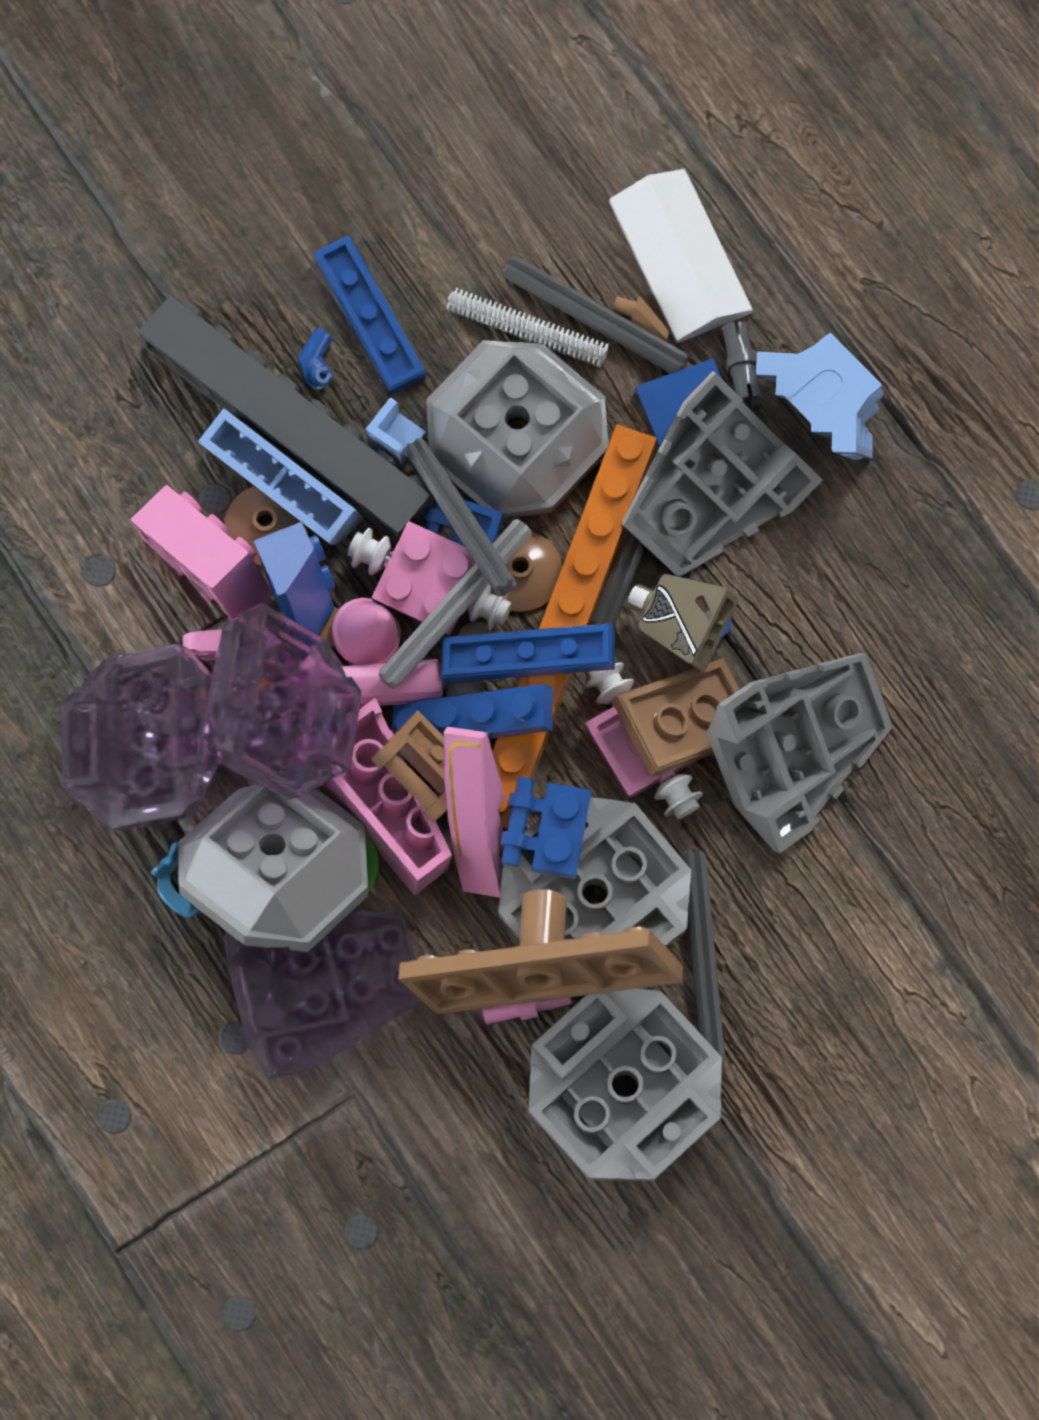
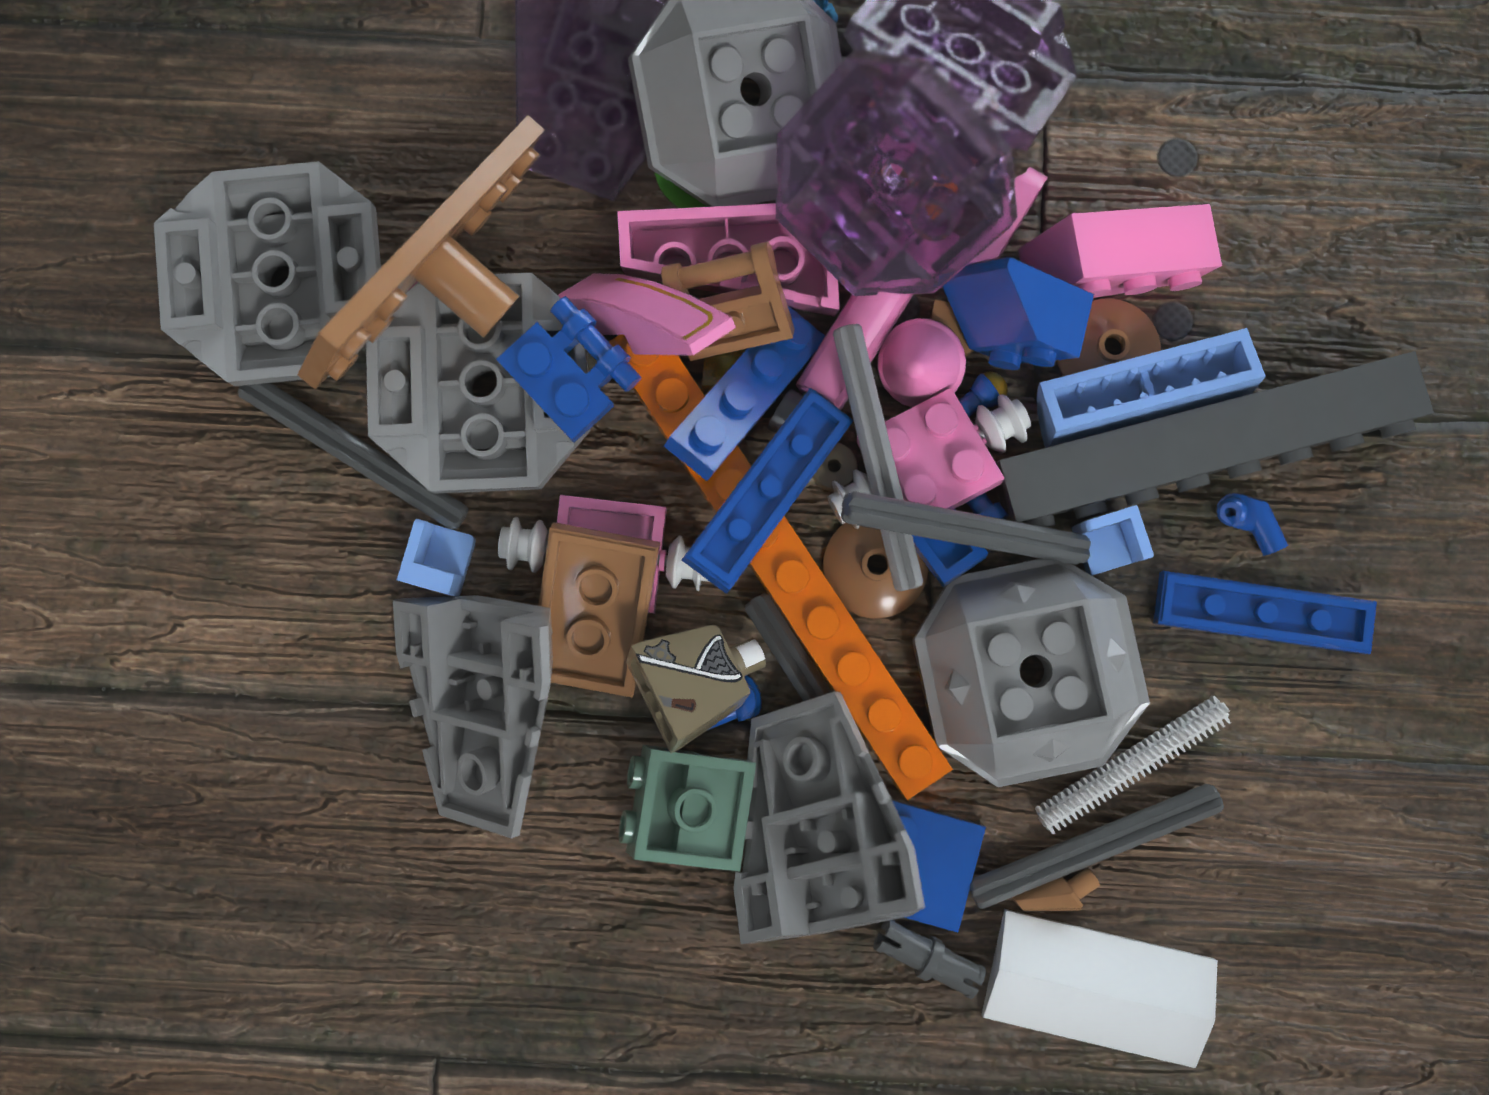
camera: 130 degrees right, 10 degrees up
(354, 580) = (984, 392): none -> blue piece
(732, 846) = (436, 558): none -> light blue panel
(765, 571) = (687, 808): none -> sand green plate
(829, 392) = (824, 1021): light blue slope -> none

